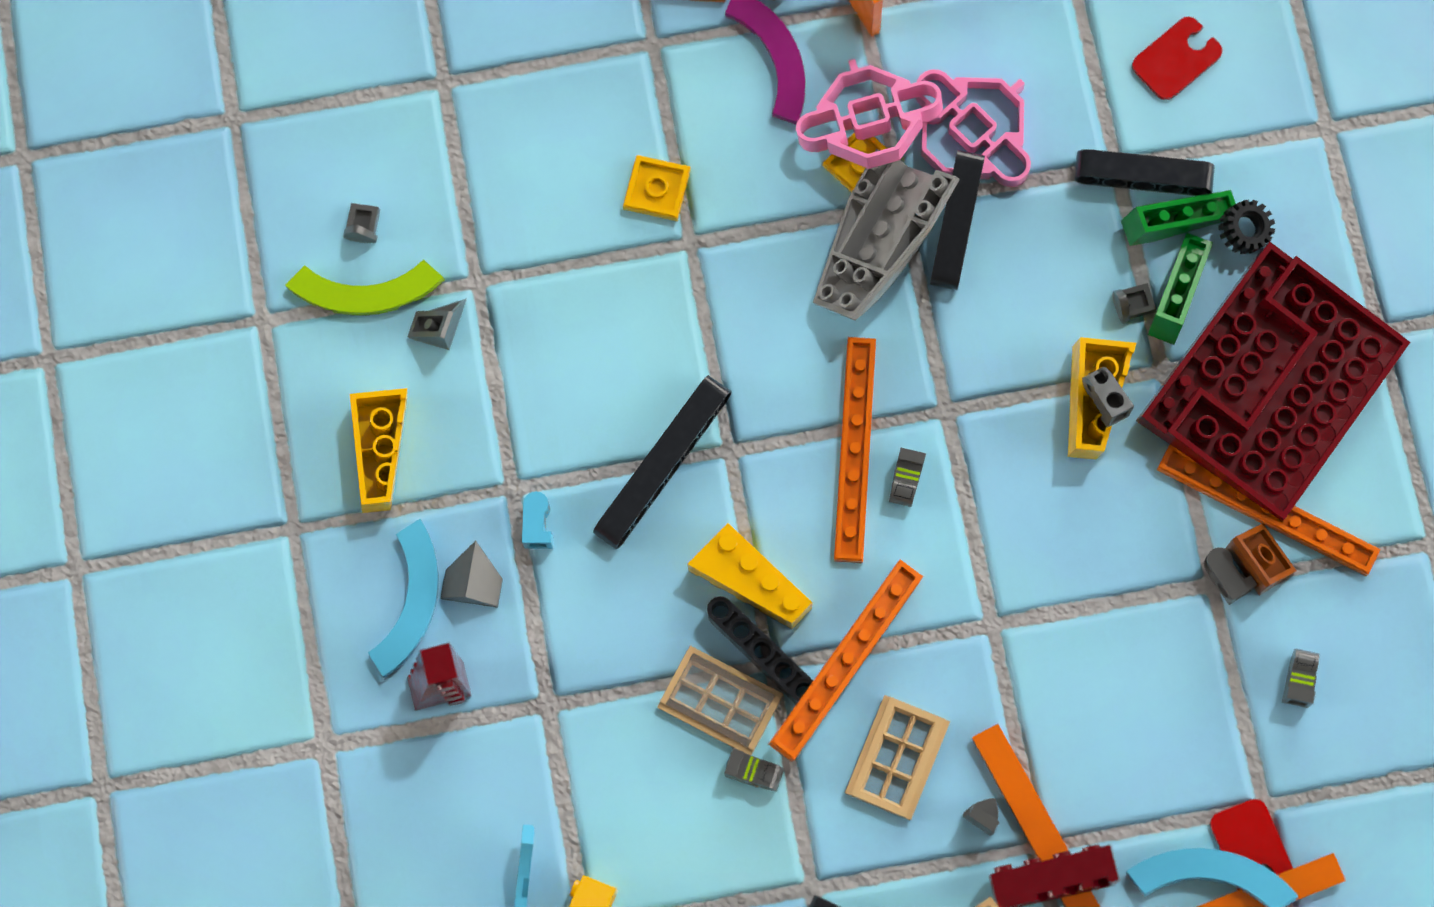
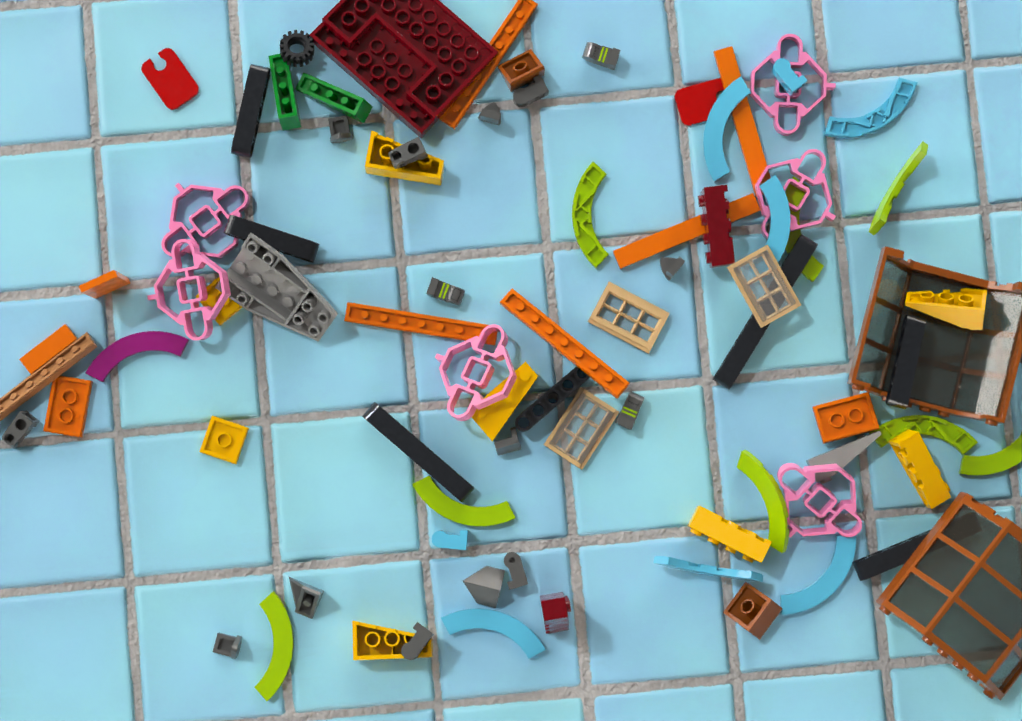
camera: 90 degrees left, 10 degrees up
(379, 481) = (413, 648): none -> dark grey leg
(499, 621) = (513, 562): none -> dark grey leg
(579, 530) = (460, 512): none -> lime tile
(685, 593) = (508, 445): none -> dark grey tile
(830, 530) = (477, 344): none -> bright pink piece
(1049, 672) = (582, 215): none -> lime tile
(1186, 519) = (490, 114): none -> dark grey tile

